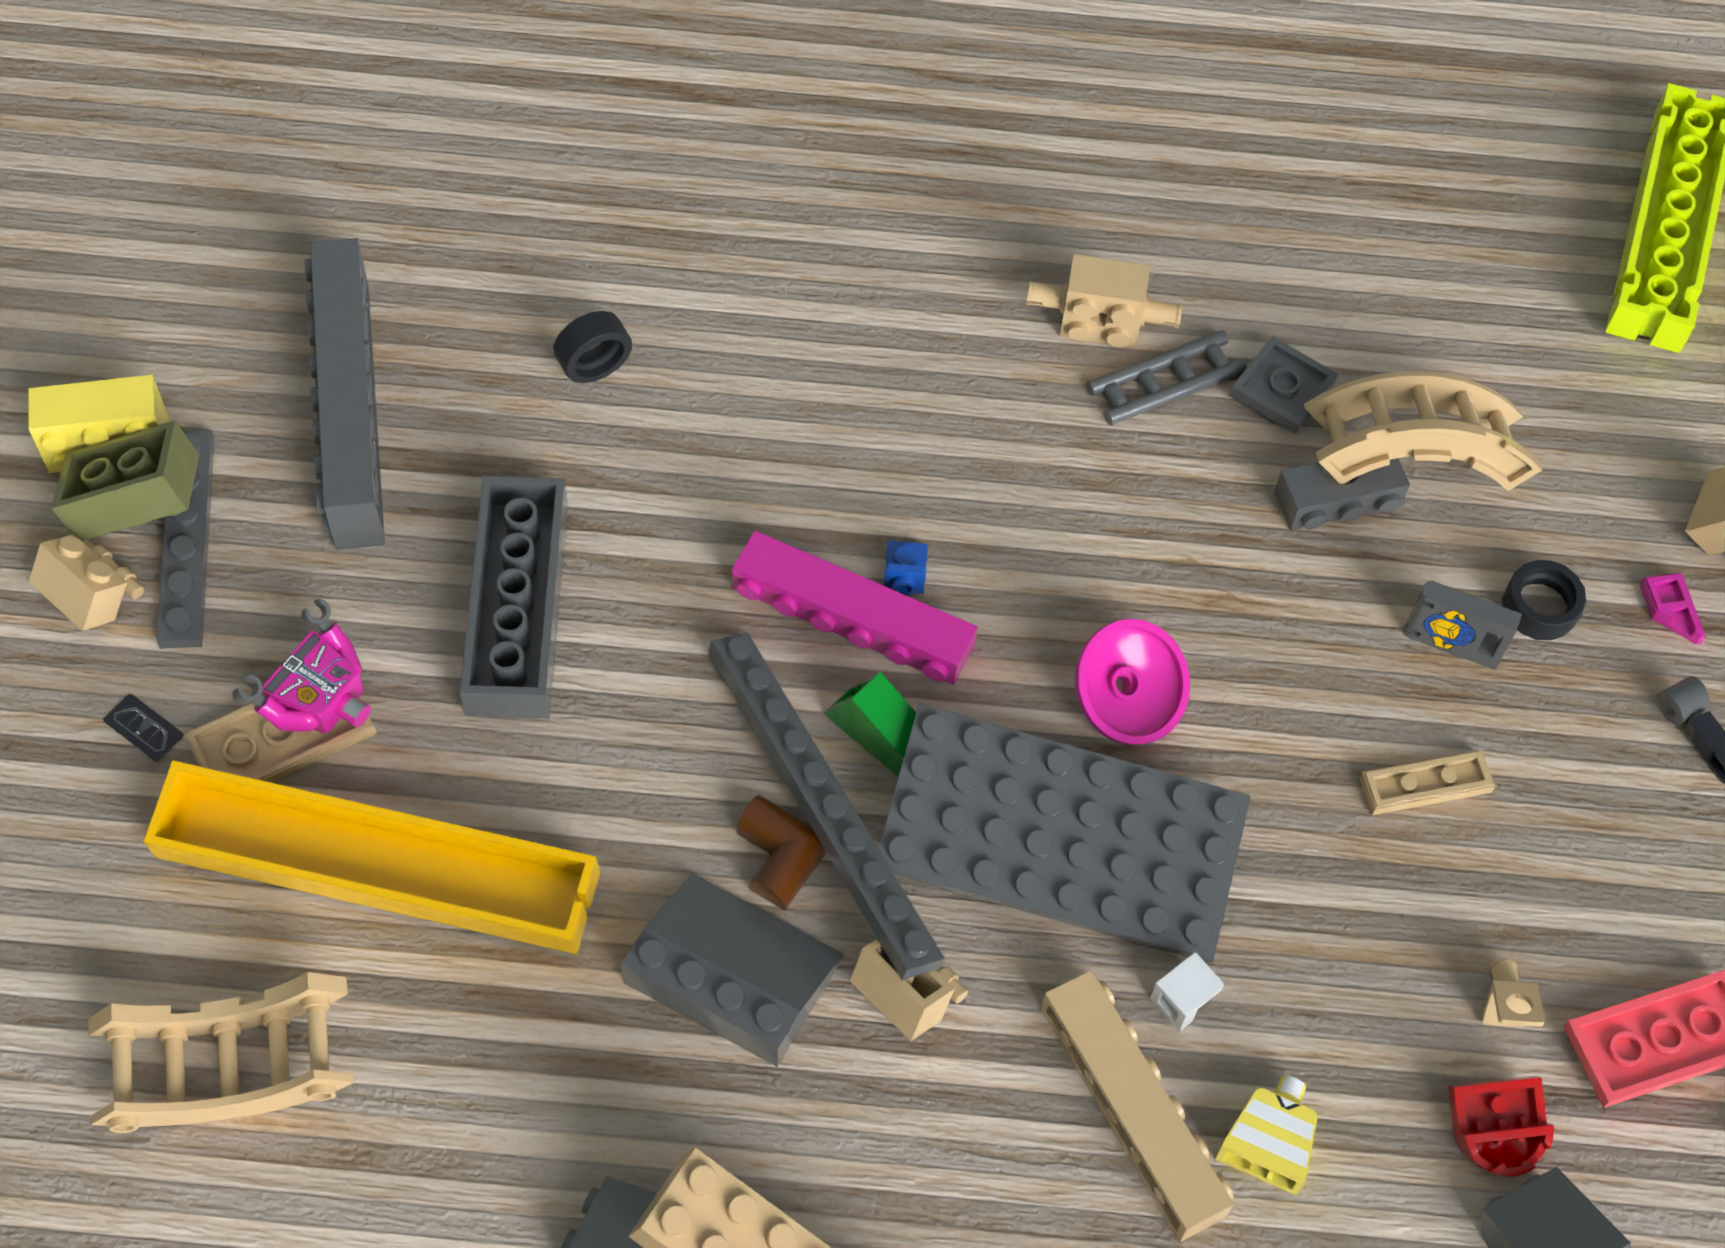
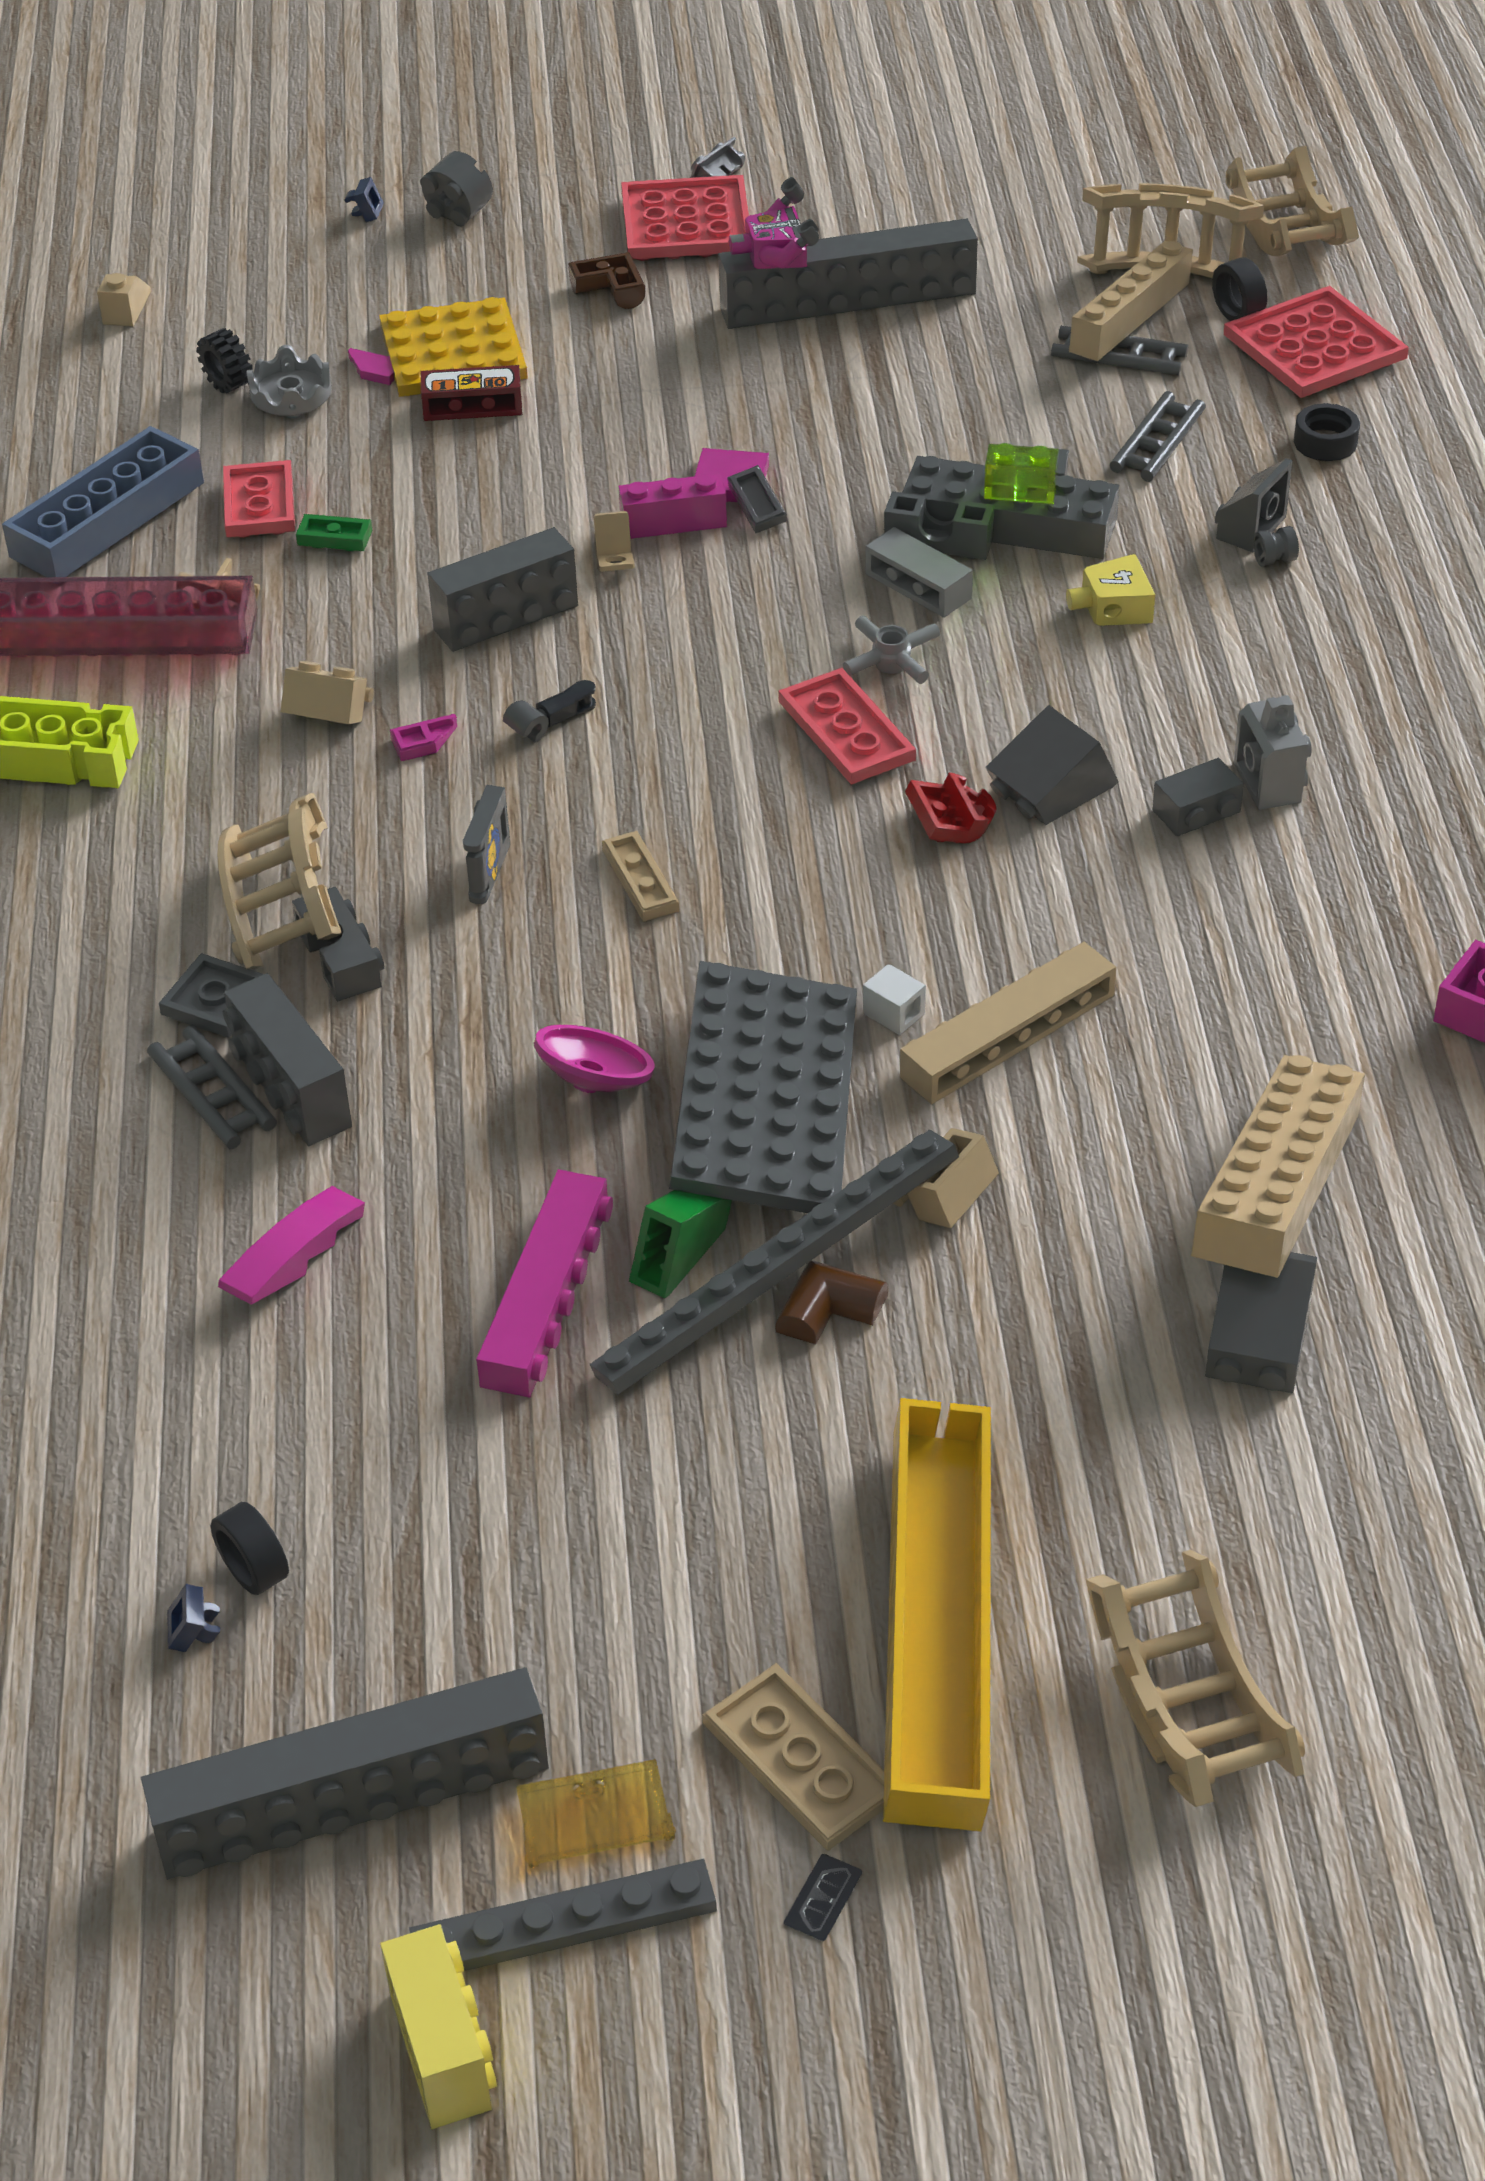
camera: 95 degrees left, 15 degrees down
(82, 580) = (658, 1991): tan brick -> none
(126, 481) = (523, 1957): olive brick -> none
(270, 581) = (594, 1816): none -> clear yellow door
(313, 684) = (745, 1706): dark pink torso -> none
(514, 598) = (593, 1556): dark grey brick -> none
(547, 309) = (187, 1619): none -> dark blue tile
(730, 968) = (964, 1314): dark grey slope -> none
(905, 567) = (484, 1254): blue bracket -> none
(942, 414) = (285, 1249): none -> dark pink slope
(1104, 301) = (138, 1121): tan brick -> none
(1166, 421) = (287, 1059): none -> dark grey brick
(1273, 1136) = (1007, 935): light yellow torso -> none
(1511, 1001) = (842, 805): tan bracket -> none
(1556, 577) = (436, 791): black tyre -> none

